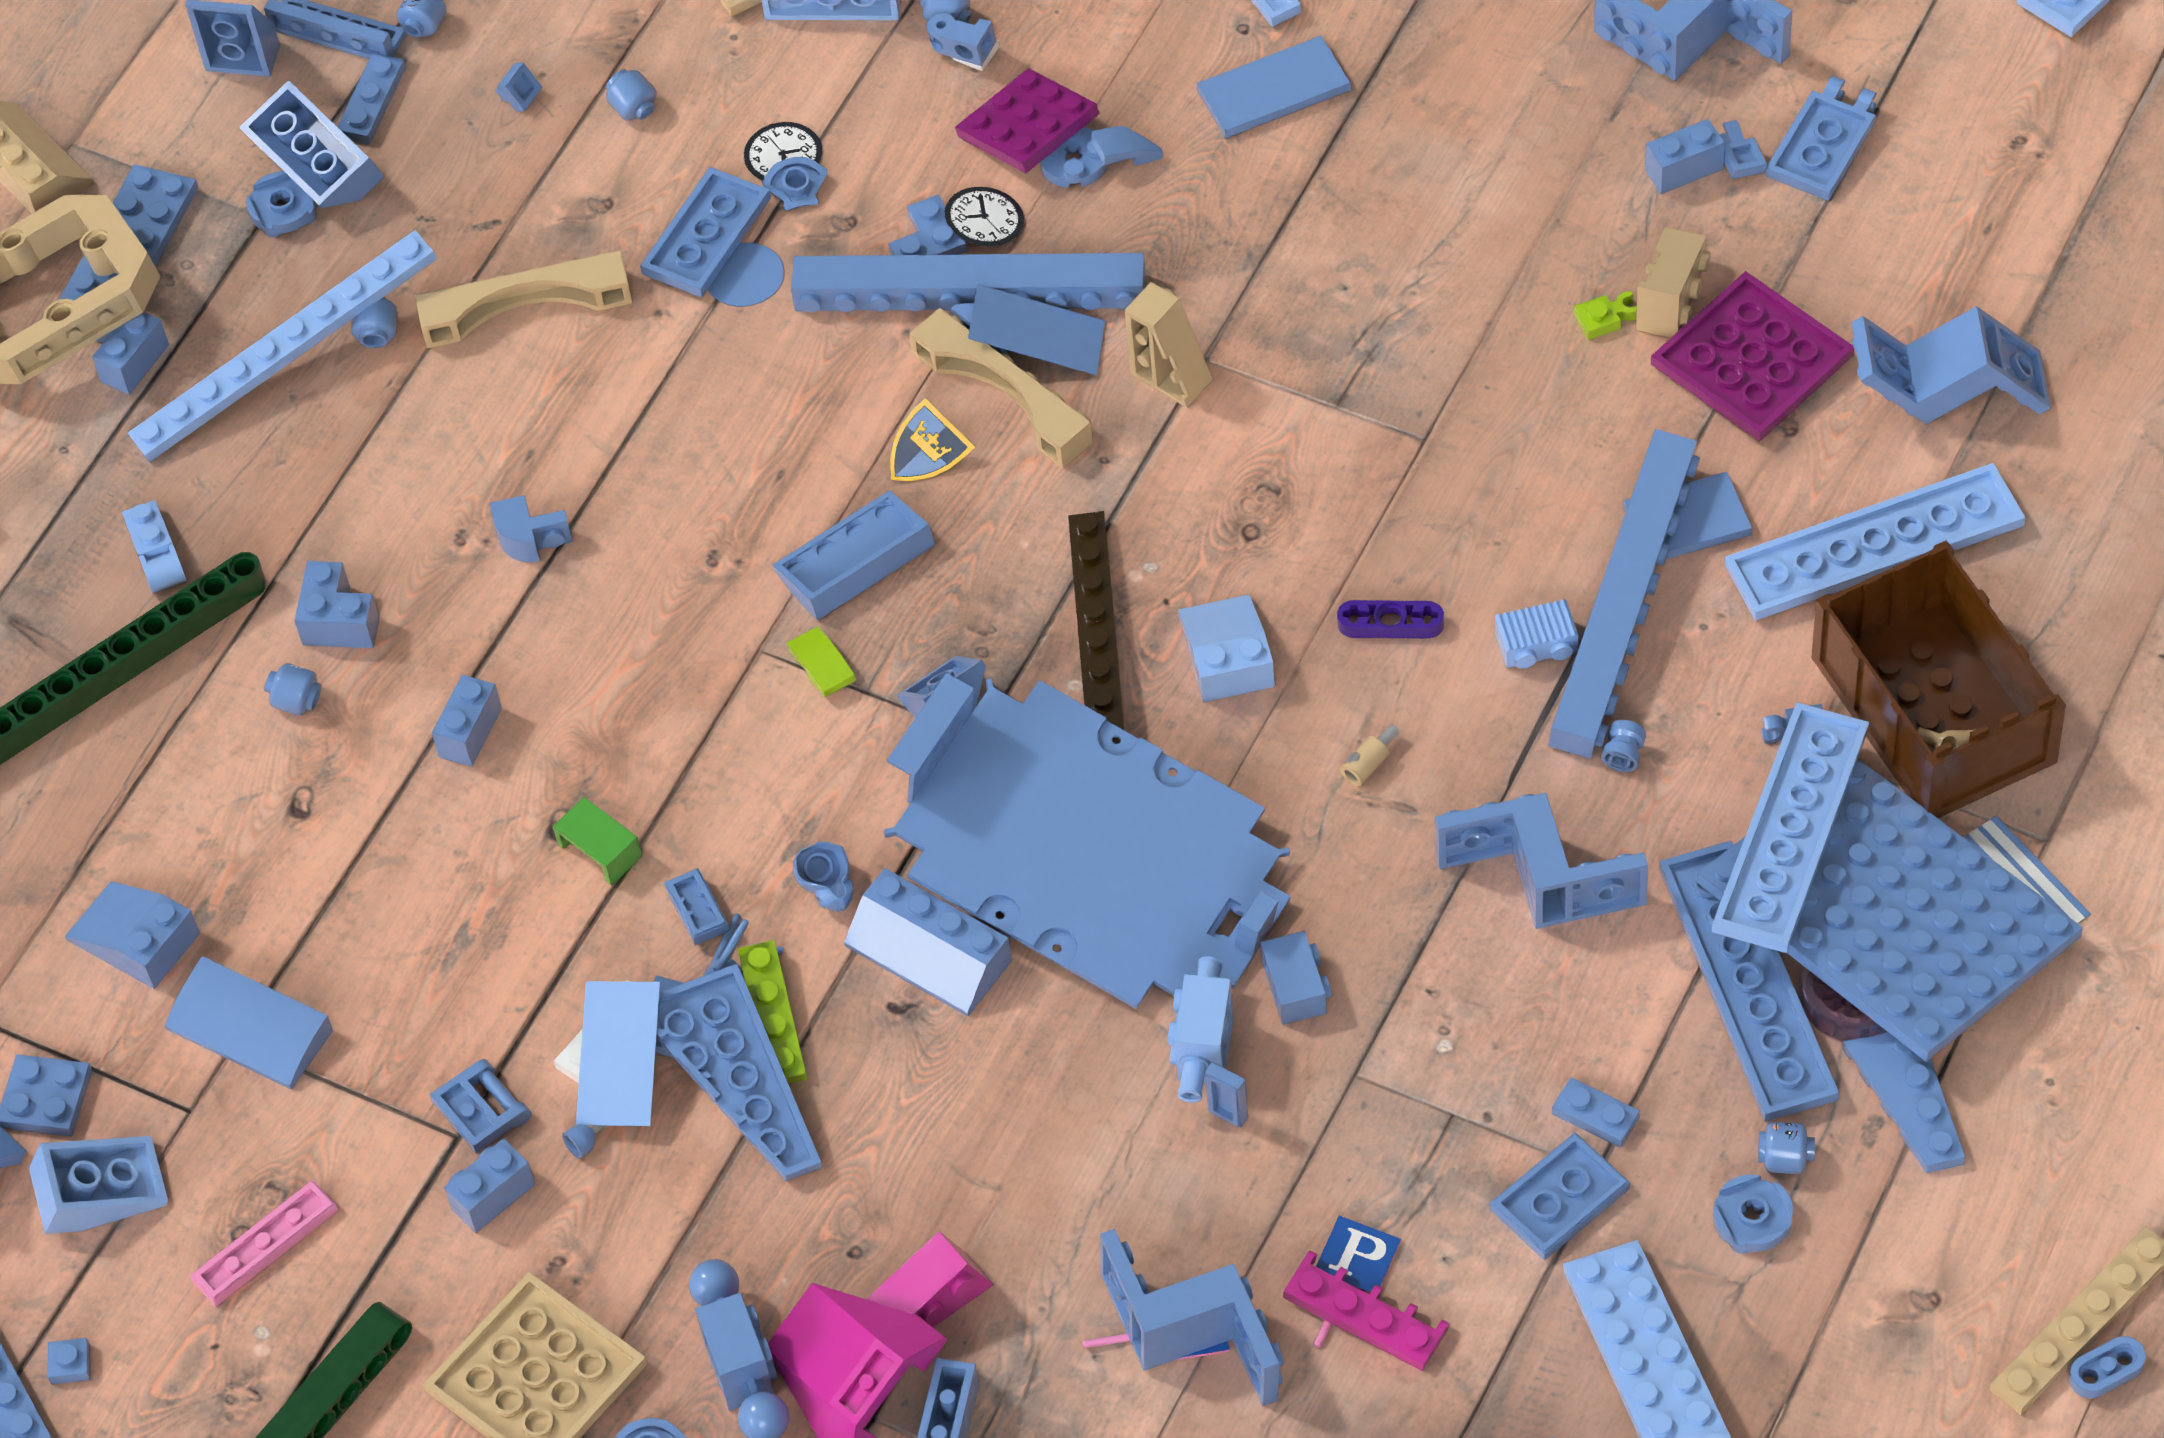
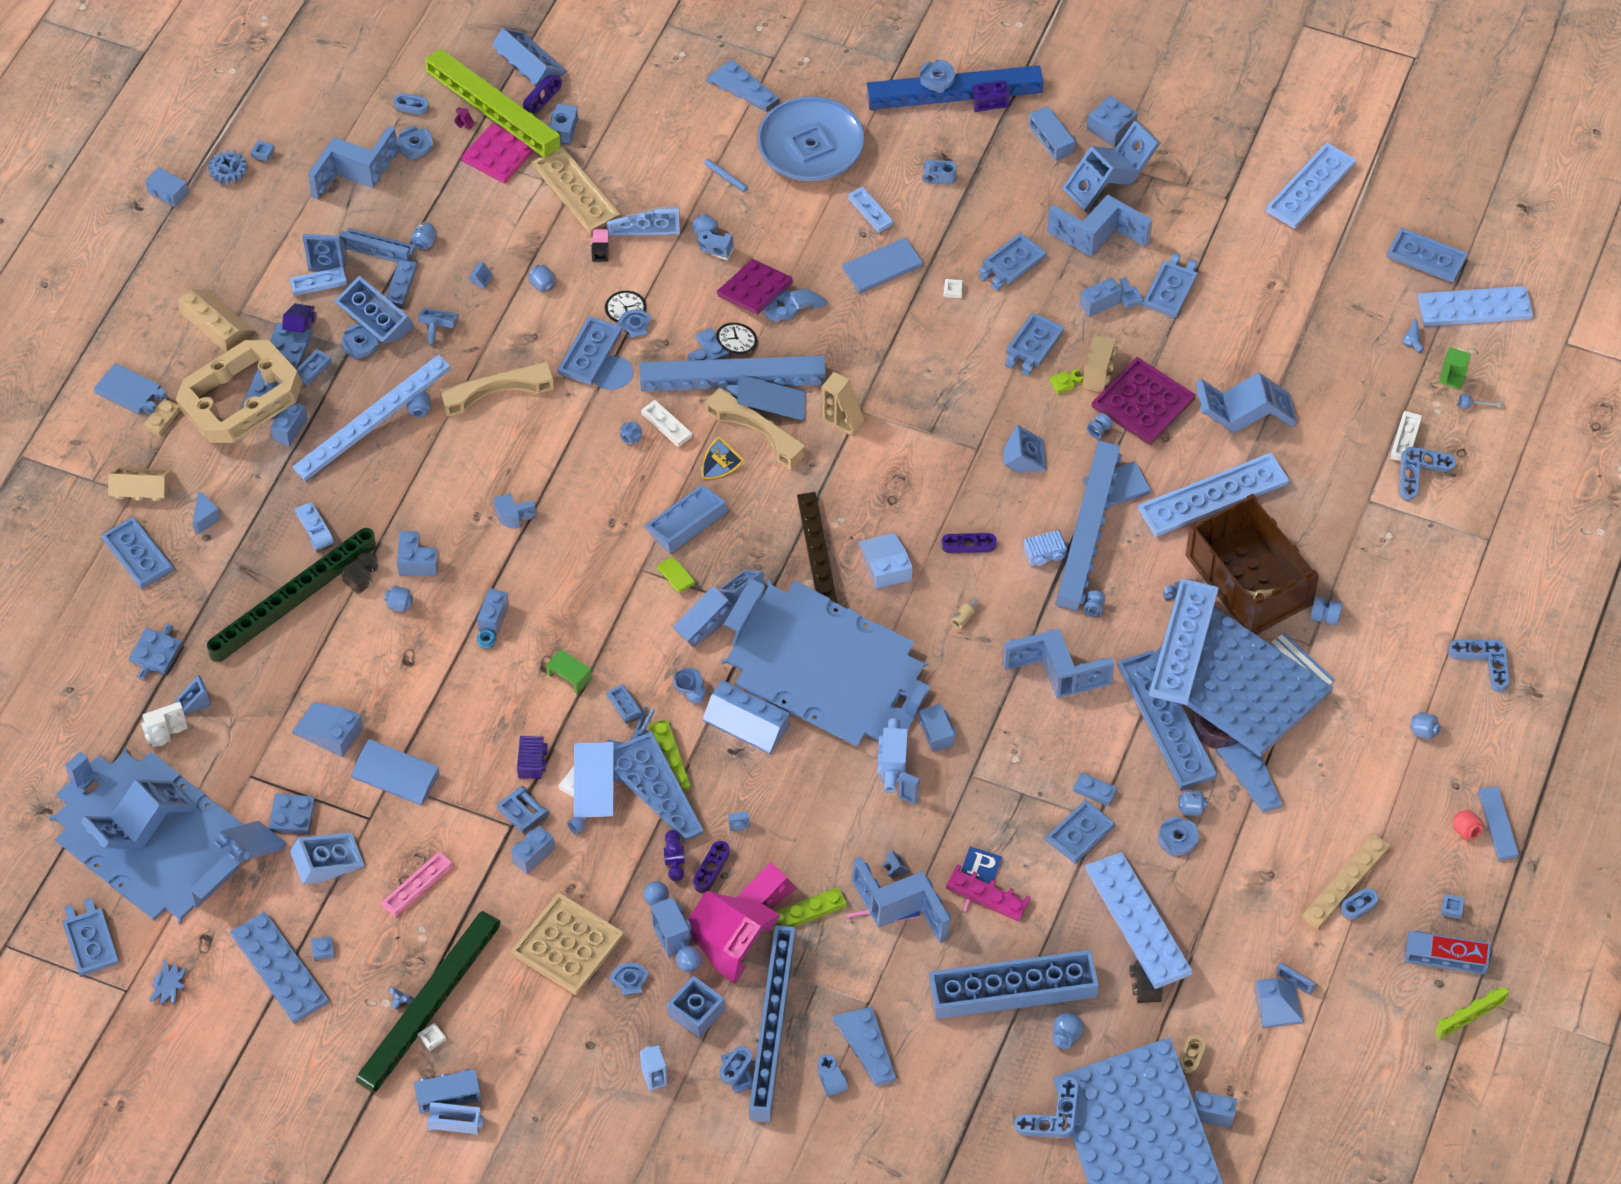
camera: 10 degrees left, 0 degrees up
(171, 156) = (299, 318): none -> dark purple brick
(188, 248) = (313, 366): none -> medium blue plate
(218, 91) = (318, 281): none -> light blue plate
(221, 639) = (358, 574): none -> clear smoke brick
(425, 162) = (436, 317): none -> medium blue plate
(449, 764) = (483, 635): none -> dark azure plate
(507, 1004) = (531, 756): none -> dark purple brick
(746, 34) = (600, 245): none -> leg
(759, 1208) = (674, 855): none -> dark purple piece
(764, 388) = (630, 432): none -> medium blue gear
(832, 1250) = (711, 858): none -> dark purple beam
(834, 373) = (666, 423): none -> white plate
(860, 745) = (704, 617): none -> medium blue wedge
(891, 1146) = (738, 821): none -> medium blue plate
(1013, 1327) = (810, 908): none -> lime plate
(1191, 1244) = (897, 864): none -> medium blue tile
(1404, 133) = (953, 288): none -> white tile
(1513, 446) = (1024, 451): none -> medium blue slope
(1520, 85) = (1011, 261): none -> medium blue tile
(1548, 239) = (1033, 342): none -> medium blue tile
(1664, 400) = (1099, 426): none -> medium blue wheel
(2080, 776) = (1326, 610): none -> medium blue wheel

